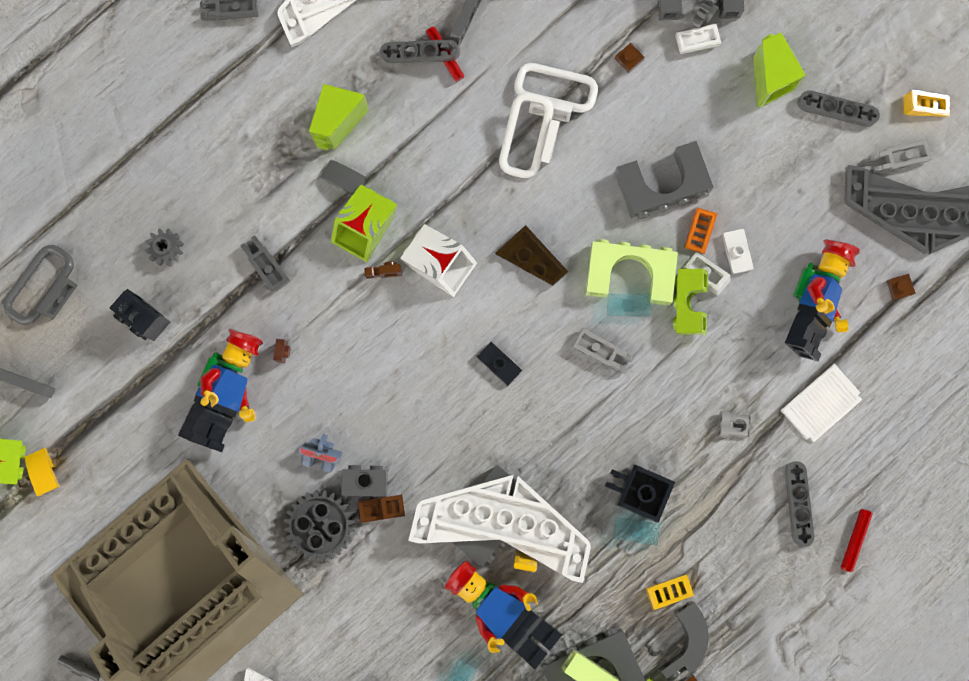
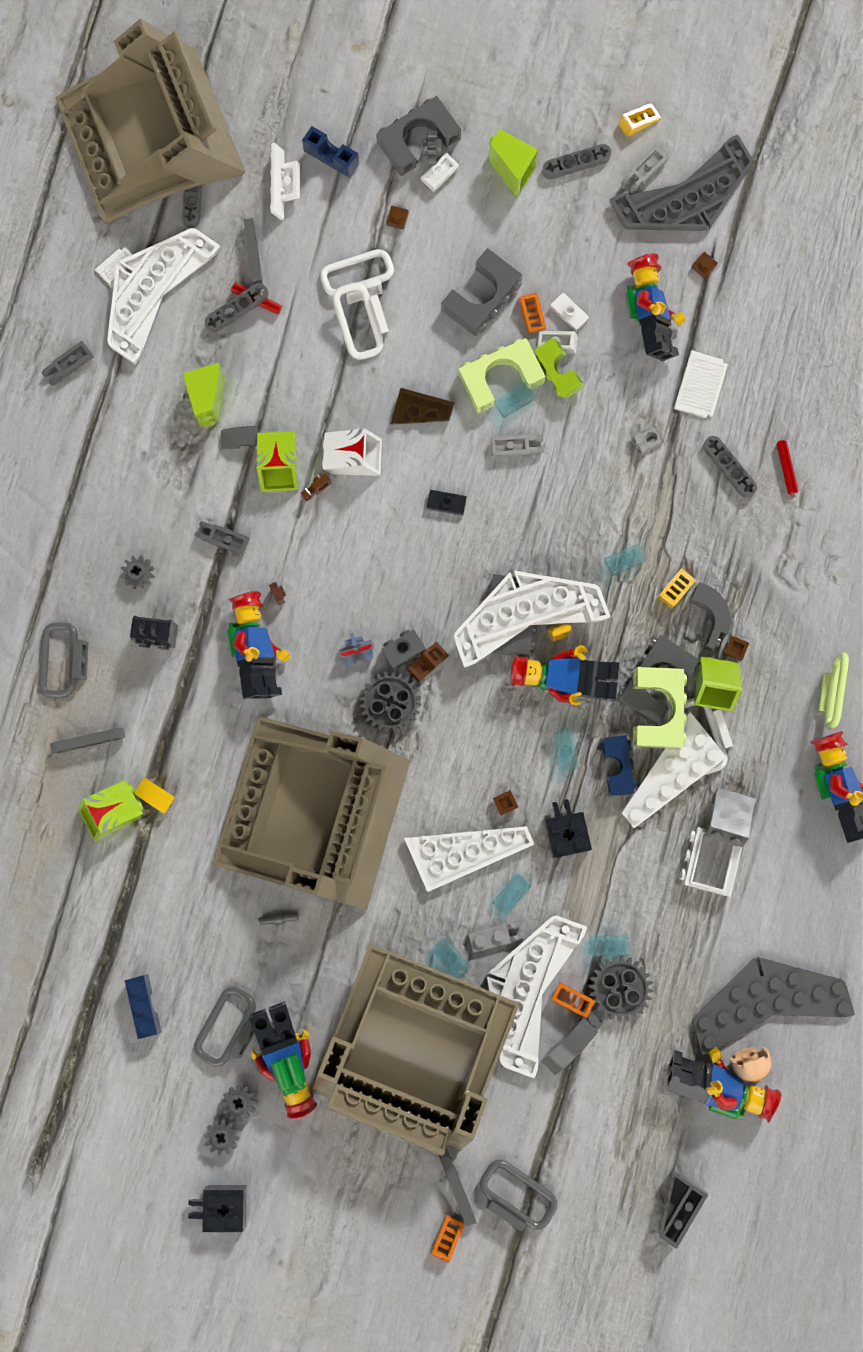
camera: 30 degrees left, 0 degrees up
(635, 481) = (605, 537): black hinge -> none

